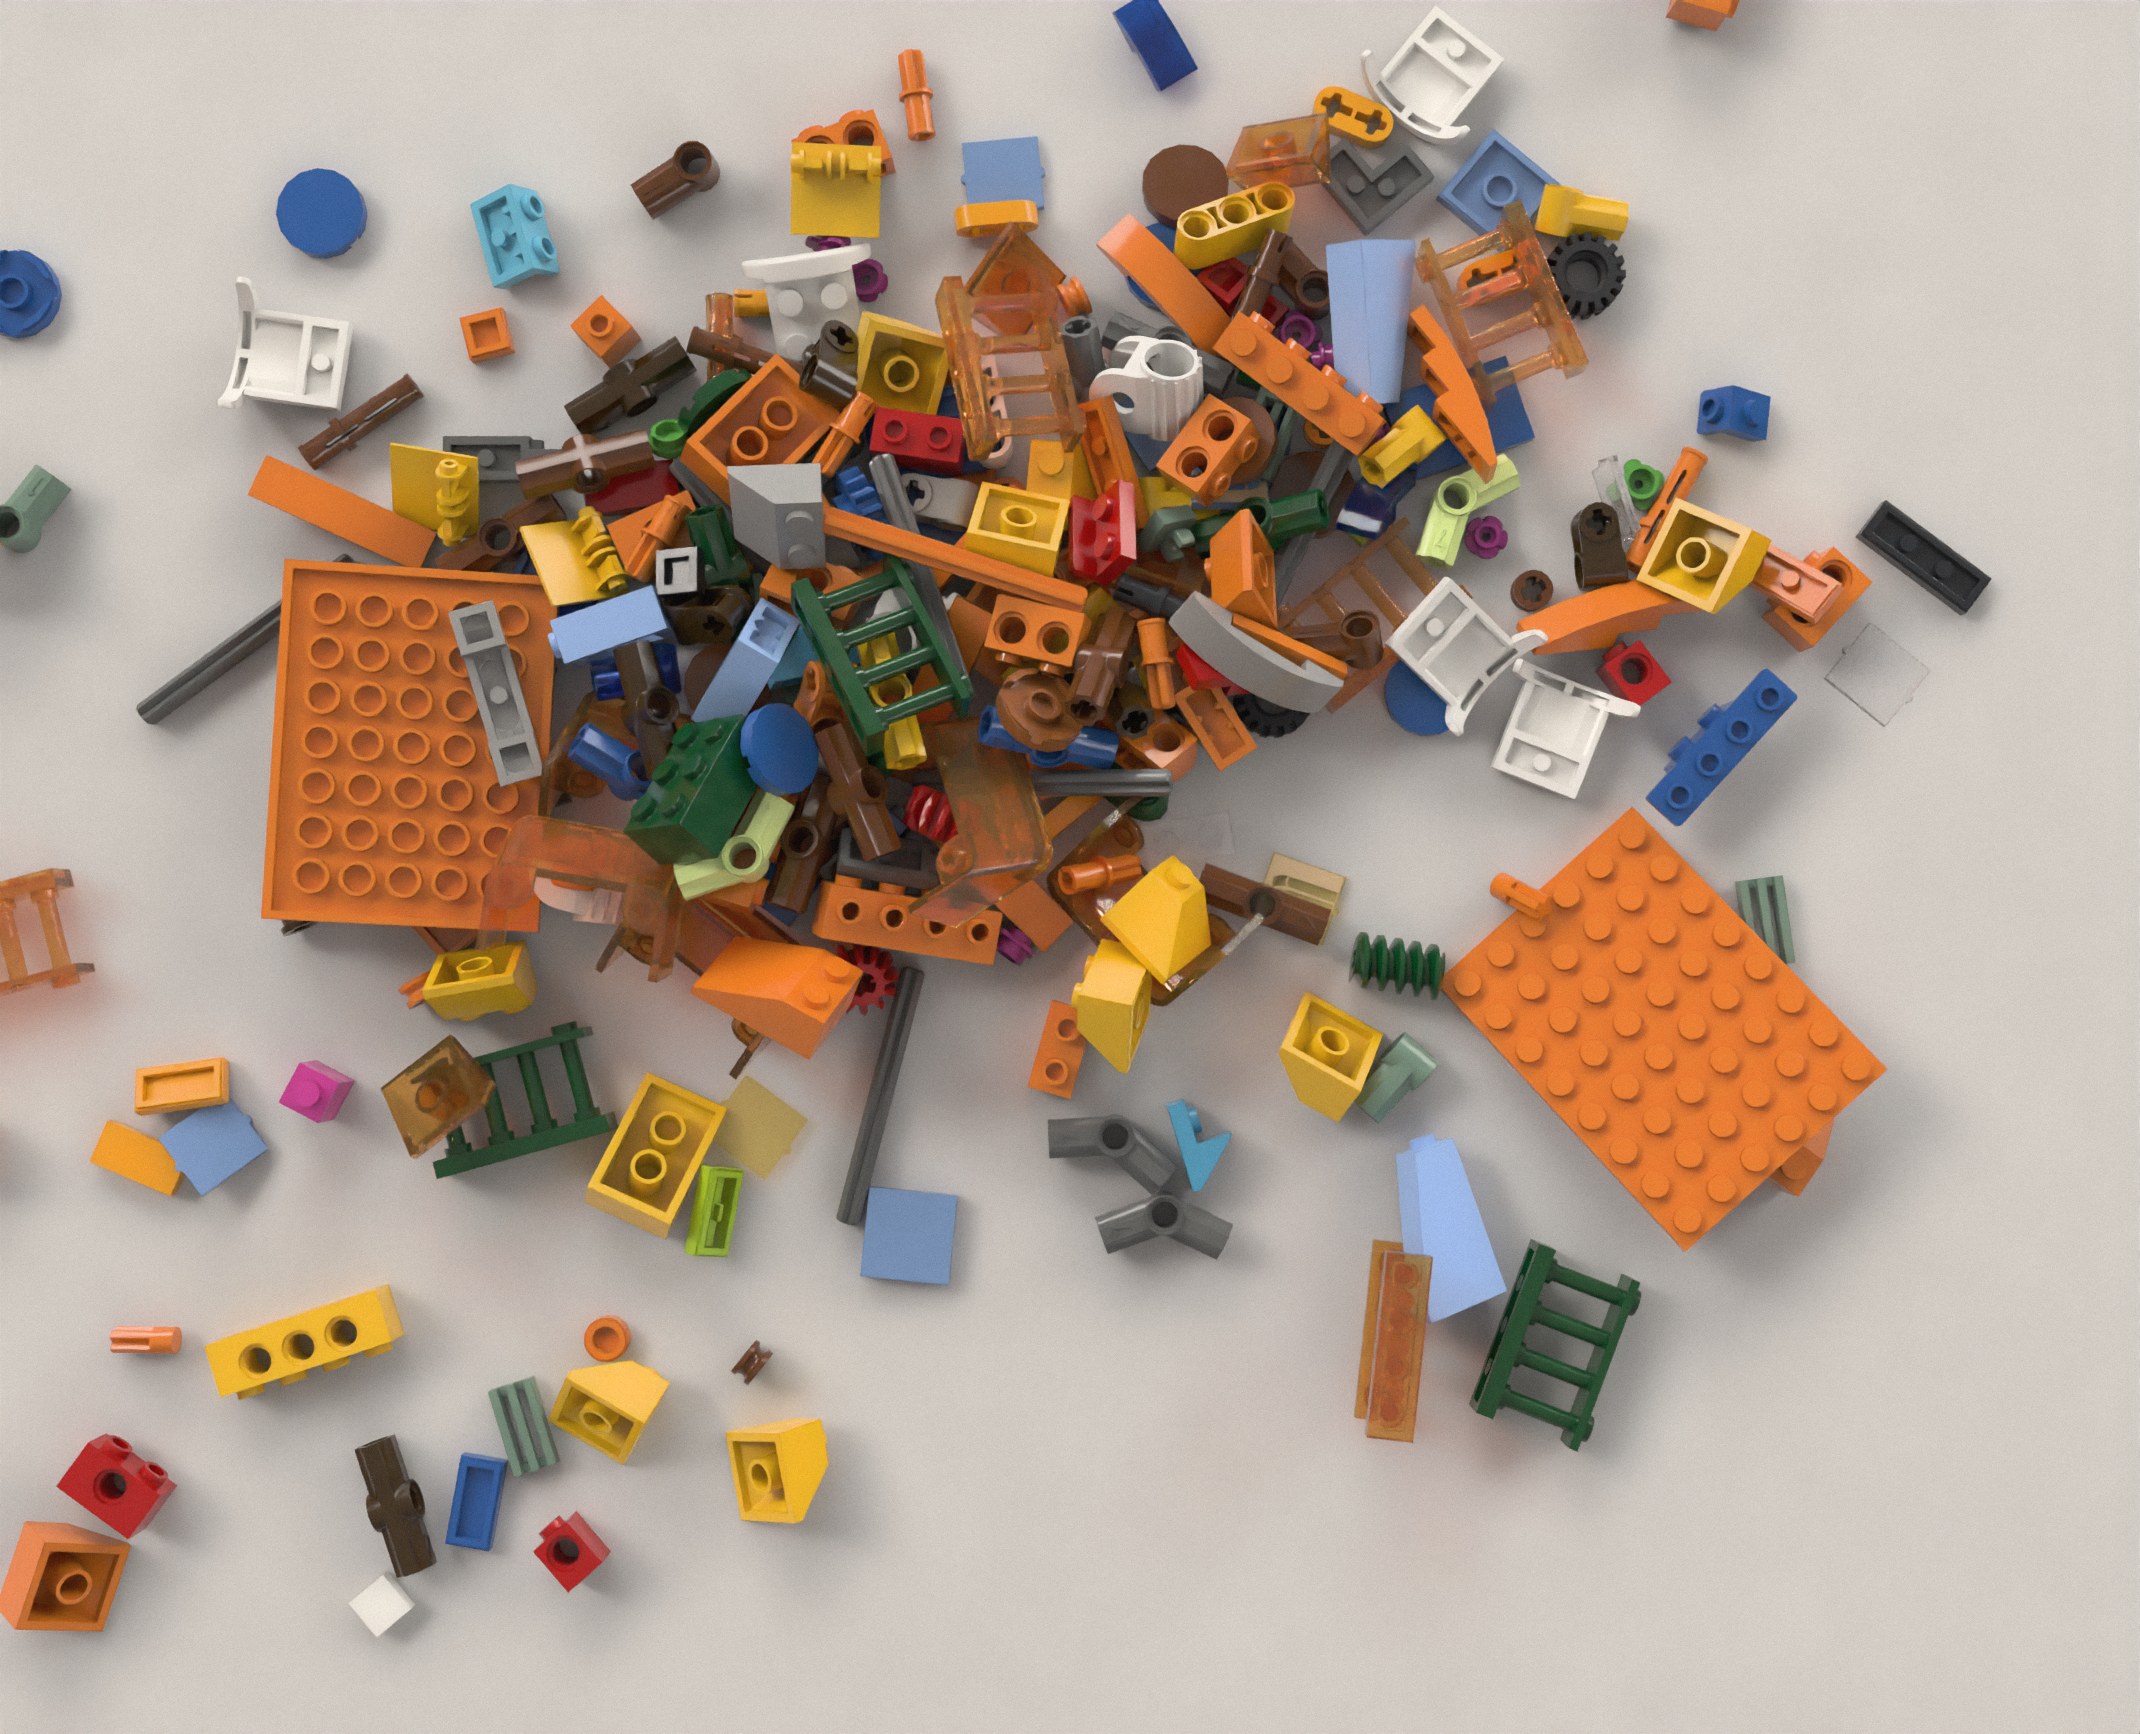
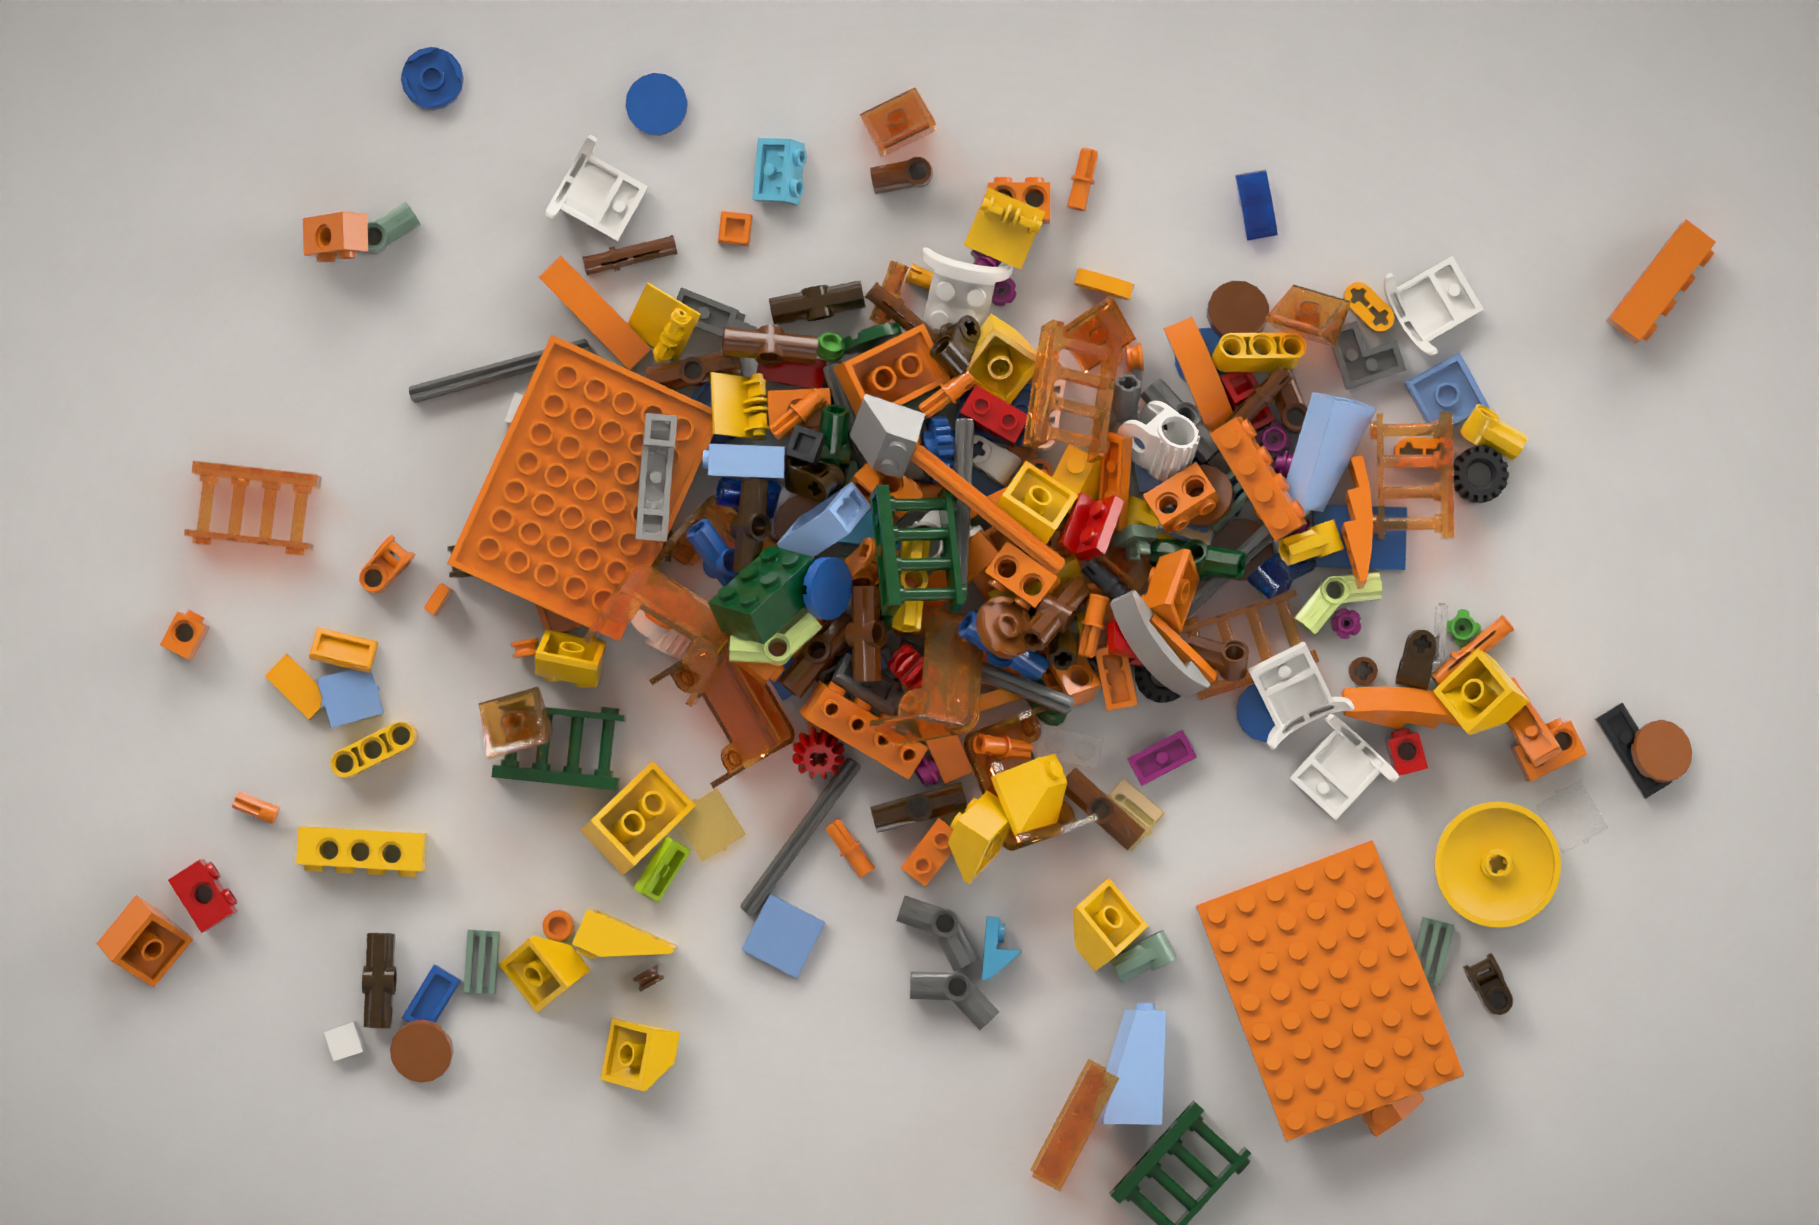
camera: 25 degrees right, 0 degrees up
(193, 951) = (386, 564): none -> orange piece
(251, 1209) = (359, 754): none -> yellow beam
(280, 970) = (438, 599): none -> orange tile
(316, 1091) = (432, 688): dark pink brick -> none
(487, 1578) = (421, 1051): none -> dark orange tile
(567, 1569) = (482, 1068): red brick -> none
(605, 332) = (815, 260): orange brick -> none
(648, 115) = (898, 122): none -> clear orange slope
(674, 1329) = (610, 937): none -> yellow slope
(781, 990) = (766, 741): orange slope -> none
(951, 1085) = (849, 848): none -> orange axle
(997, 1015) = (898, 813): none -> dark brown piece
(1003, 171) = (1120, 254): medium blue piece -> none
(1314, 806) = (1161, 757): none -> magenta plate
(1397, 965) = (1175, 884): dark green piece -> none
(1521, 896) = (1274, 870): orange piece -> none
(1718, 746) = (1442, 823): blue bracket -> none
(1734, 413) = (1544, 605): blue bracket -> none
(1817, 778) = (1497, 864): none -> yellow dish
(1855, 931) = (1489, 983): none -> dark brown piece
(1964, 542) = (1661, 751): none -> dark orange tile

